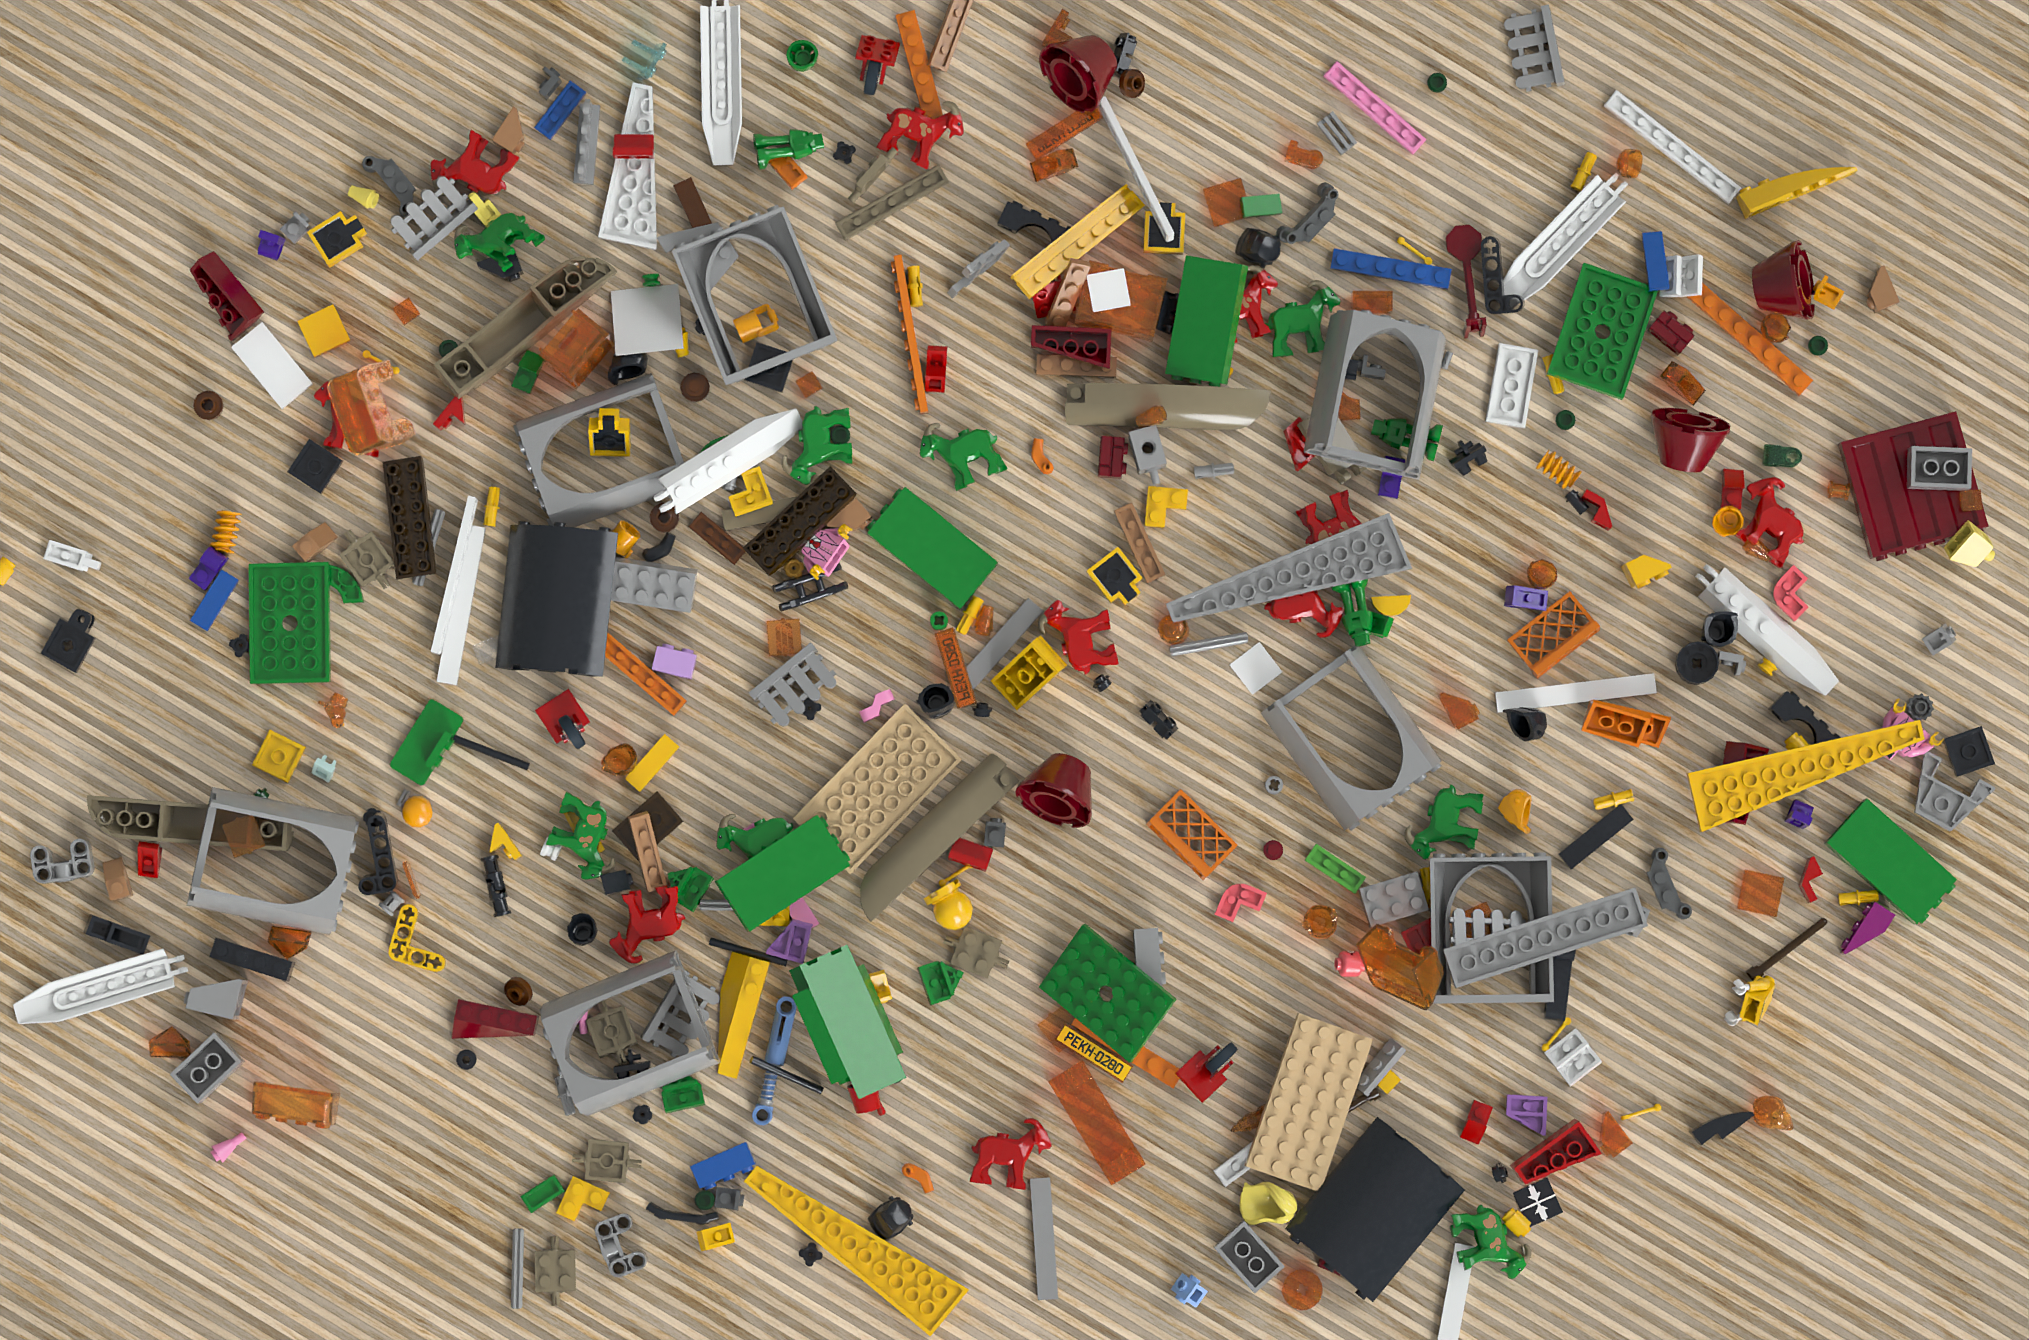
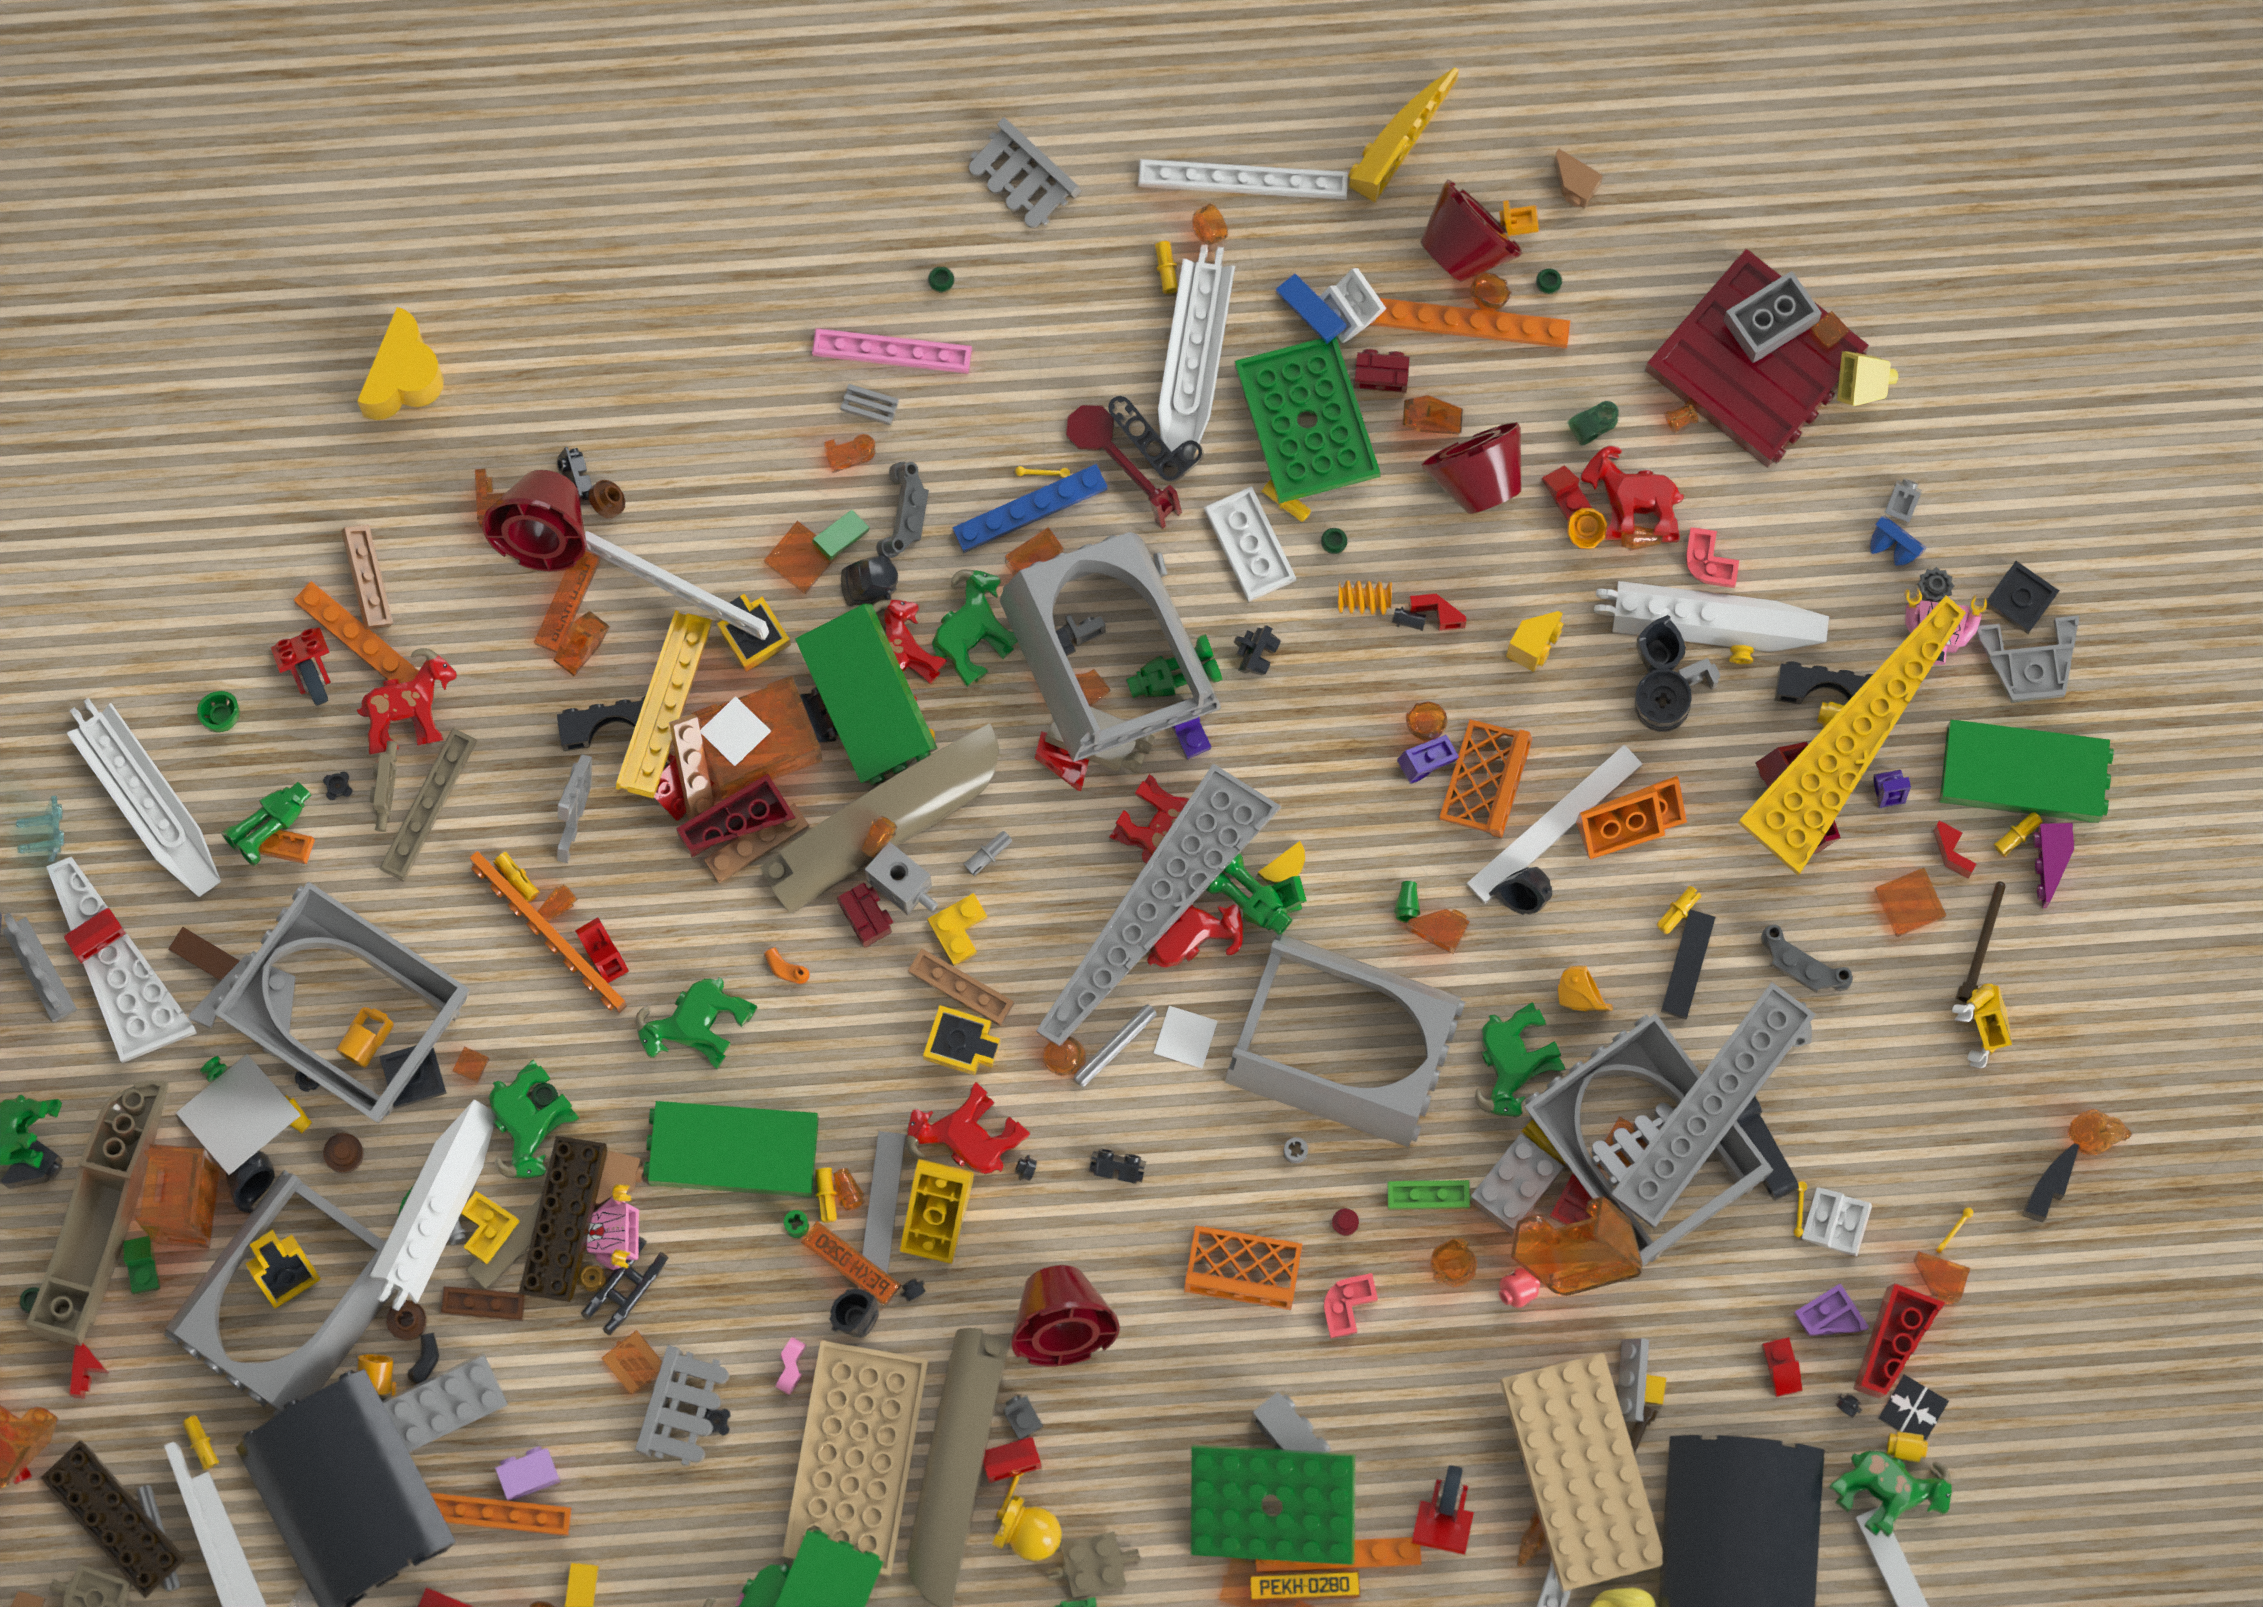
camera: 30 degrees left, 10 degrees down
(930, 320) = (557, 903): none -> clear orange cone
(1449, 680) = (1407, 904): none -> green cone
(1915, 653) = (1887, 534): none -> blue tile

